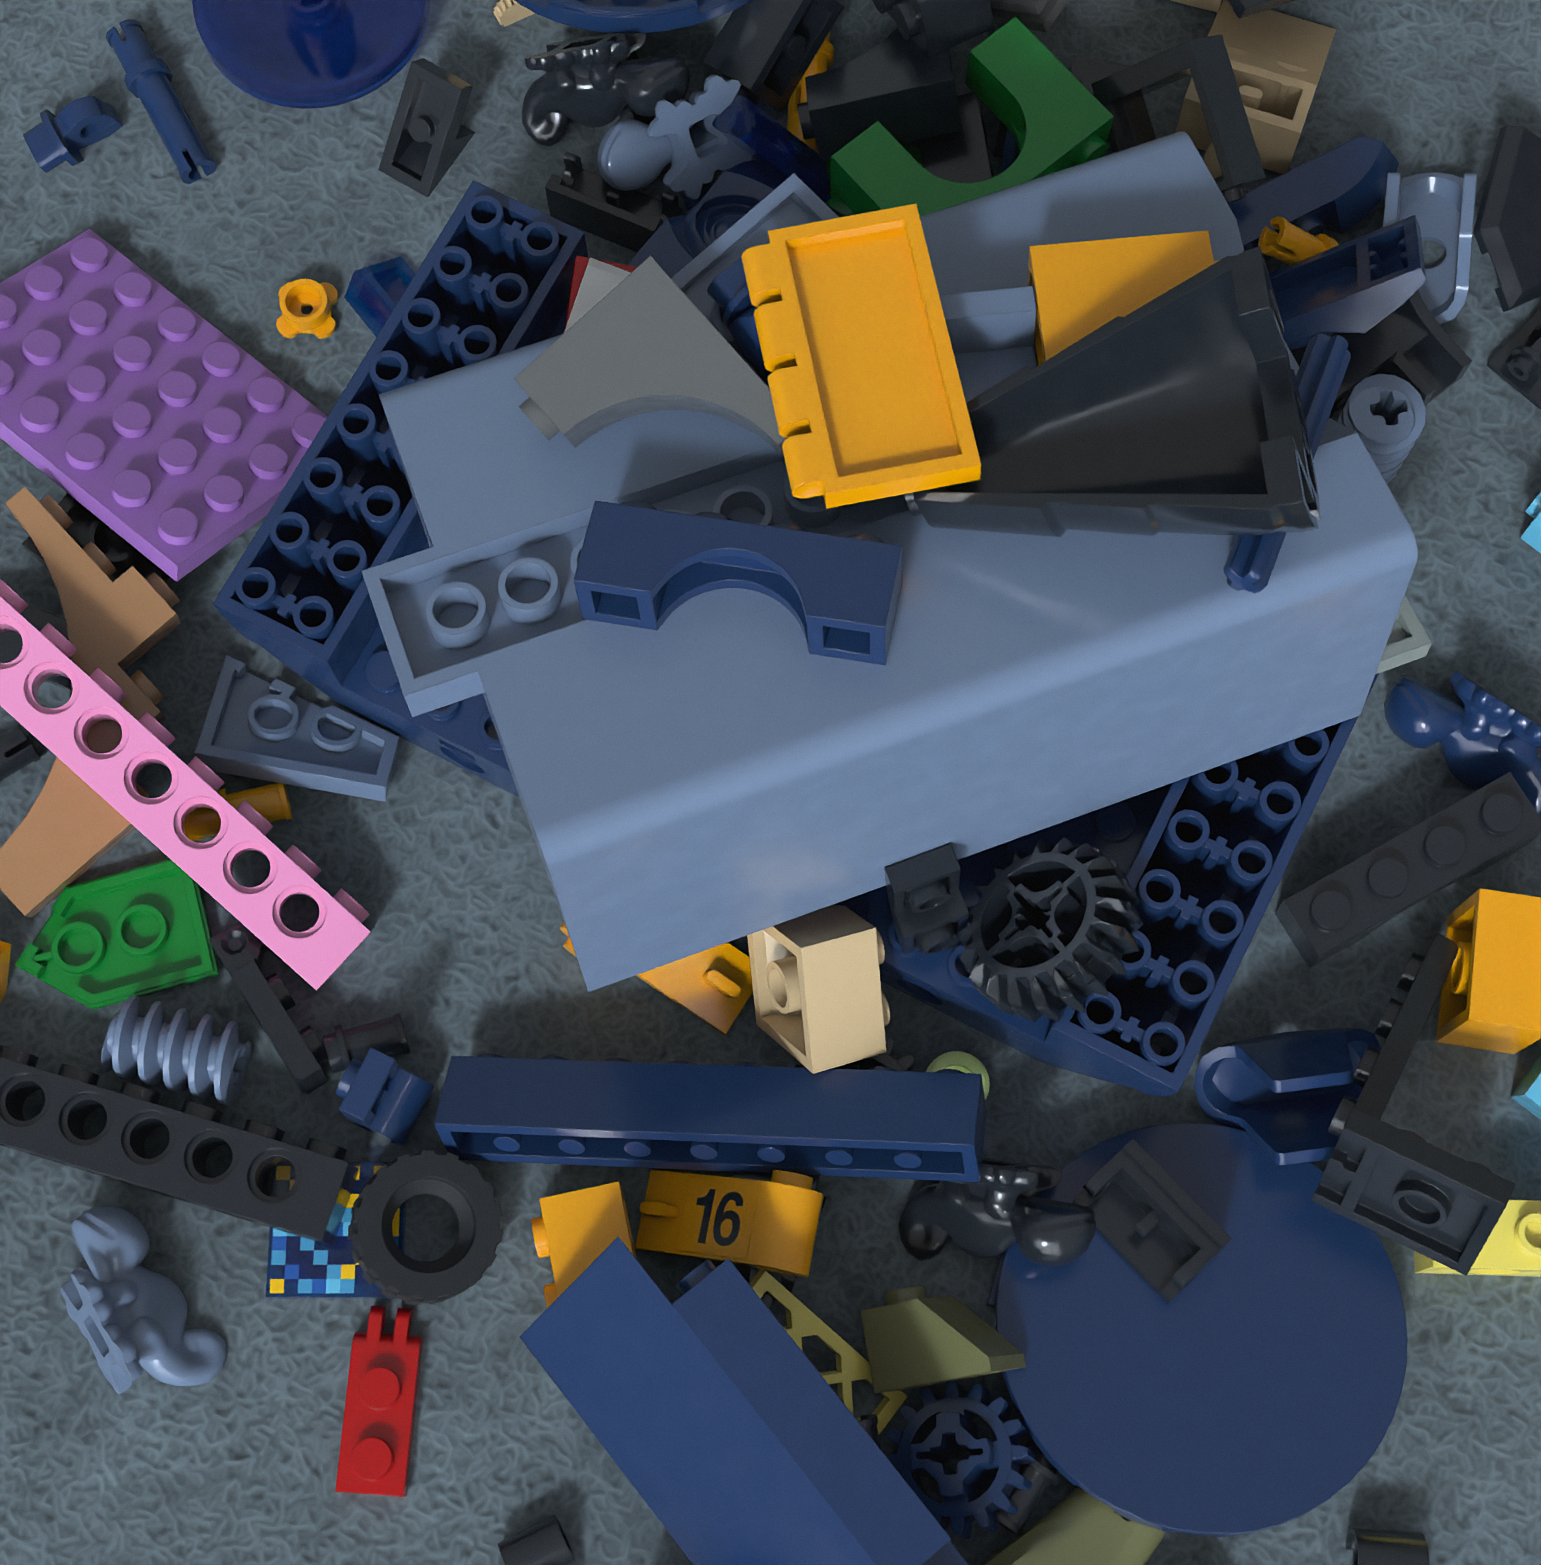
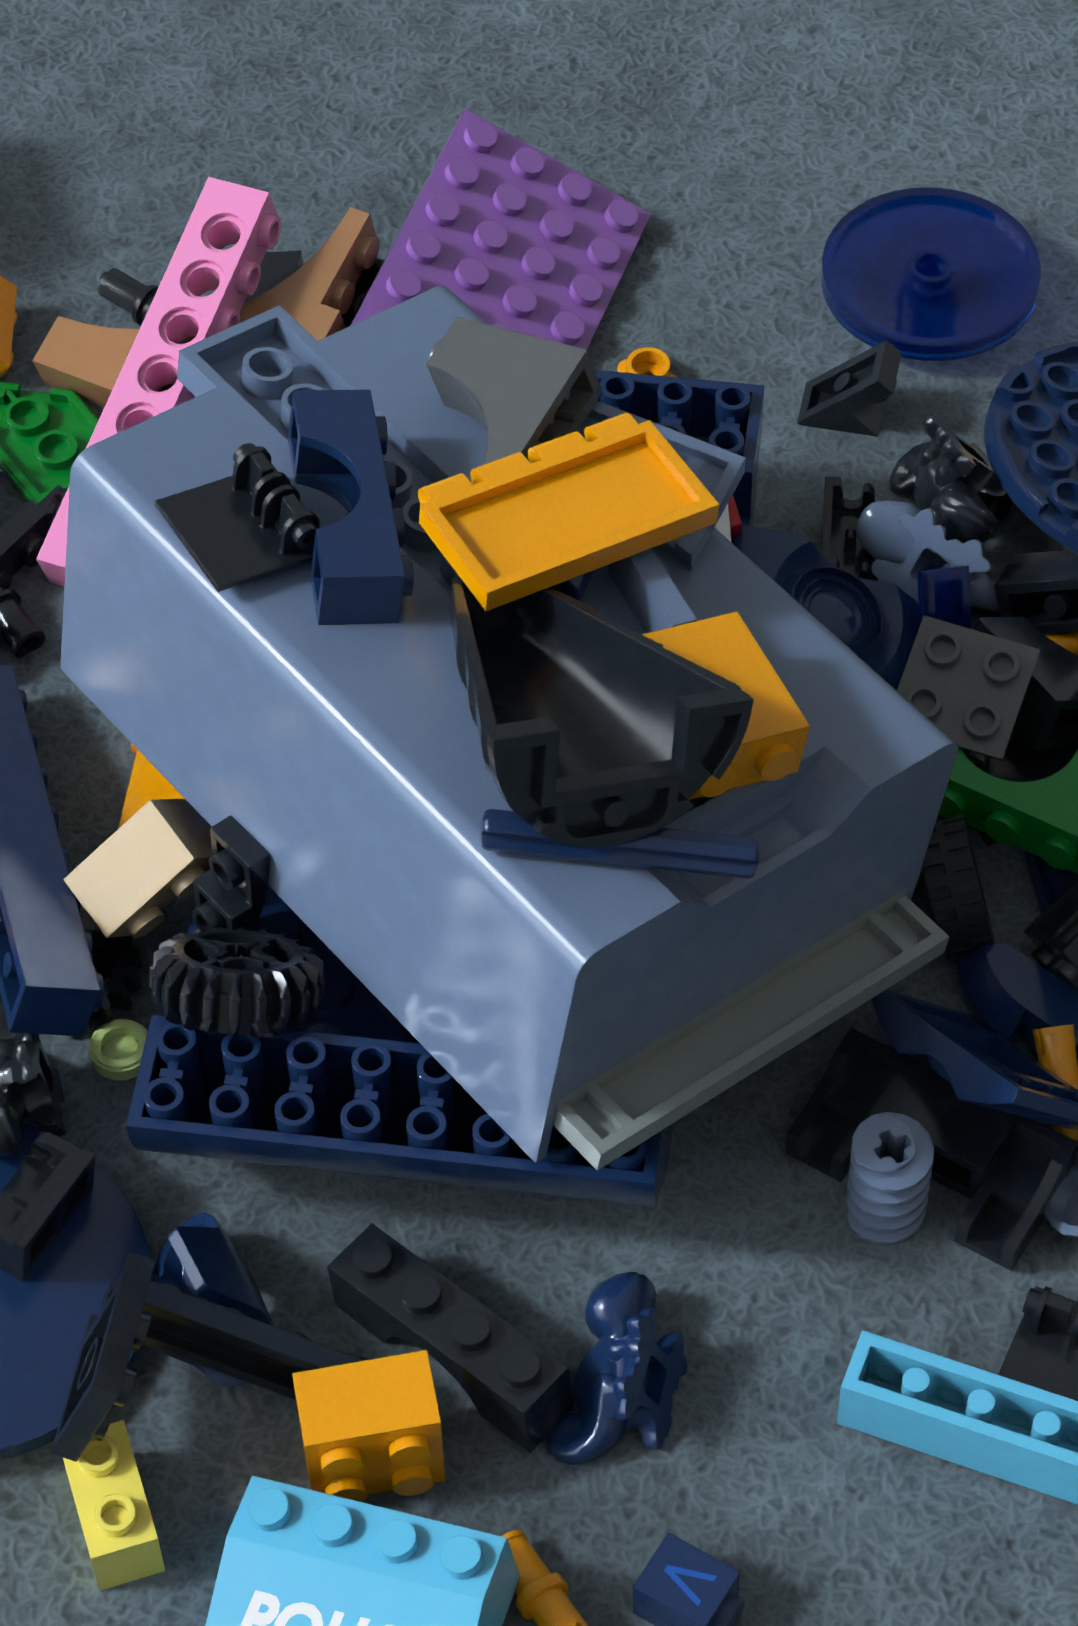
camera: 70 degrees right, 20 degrees down
(74, 128) = (733, 171): dark blue piece -> none
(151, 82) = (805, 205): dark blue pin -> none
(730, 697) = (243, 522): none -> black hinge
(909, 146) = (968, 685): none -> dark grey hinge

